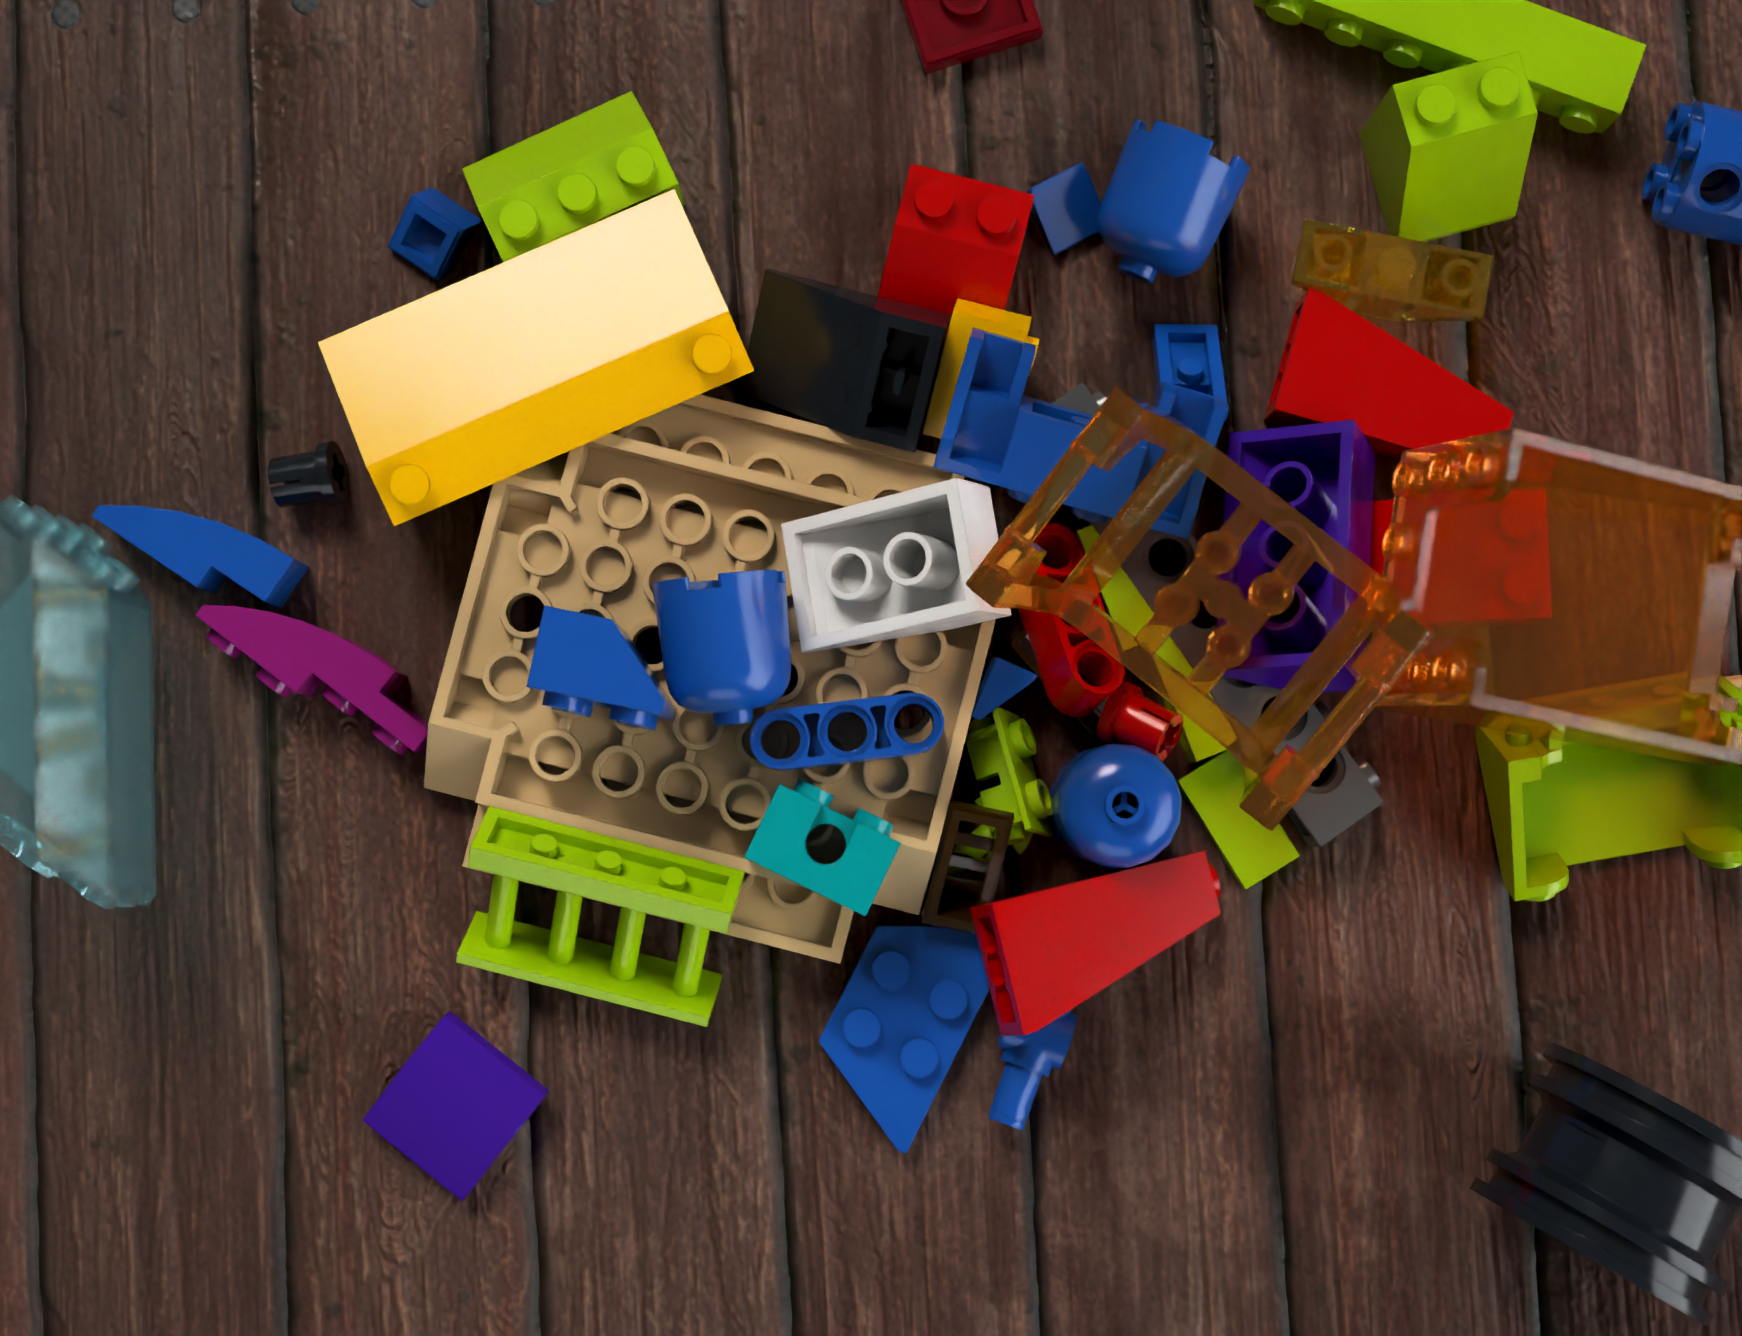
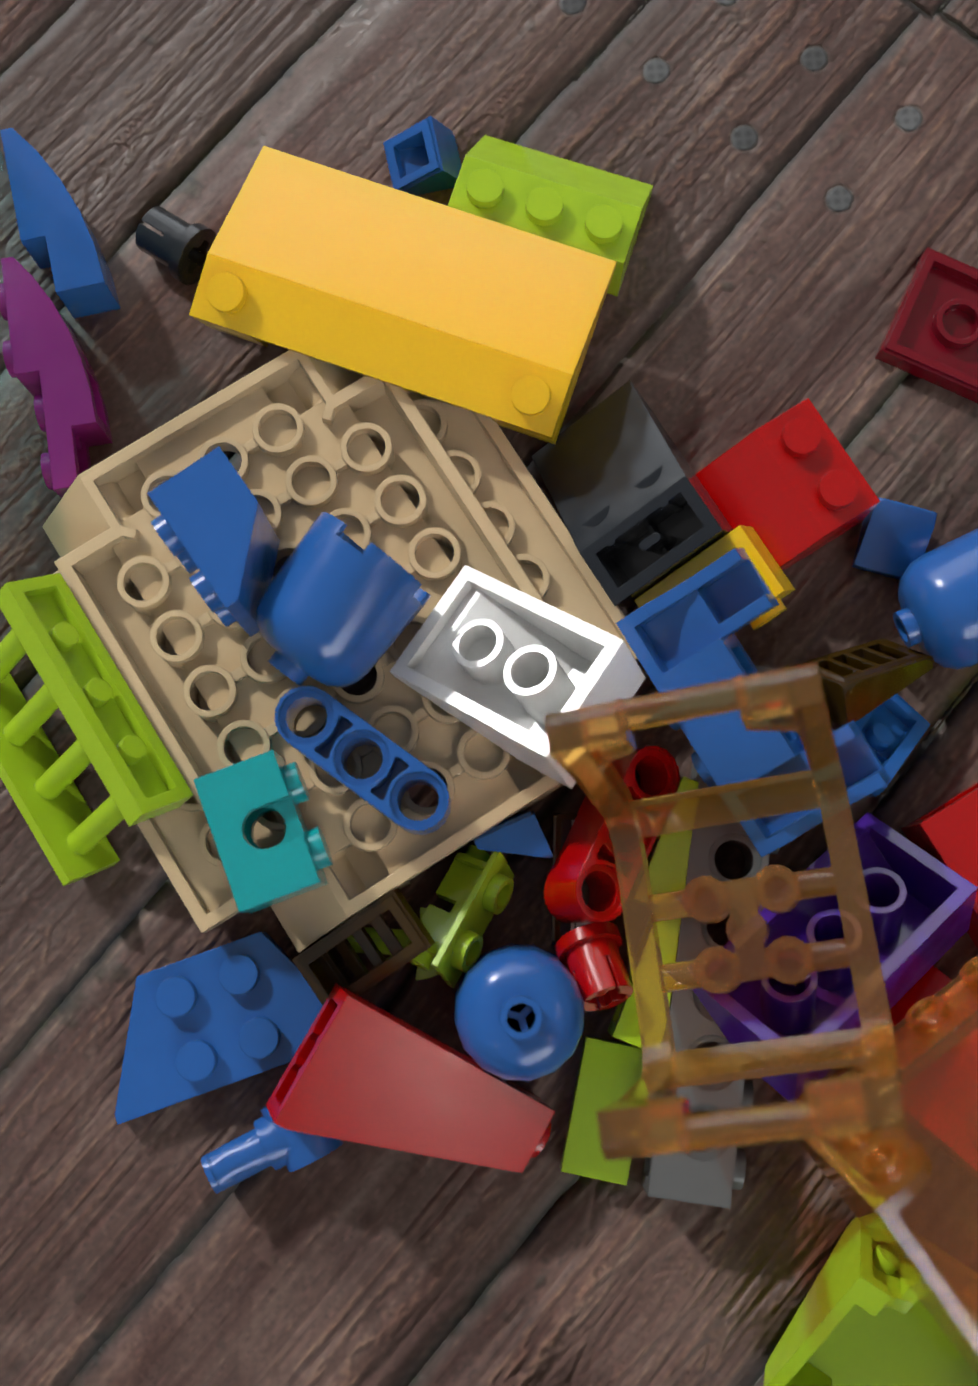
camera: 45 degrees right, 5 degrees down
(1134, 351) = (867, 676): none -> dark brown slope

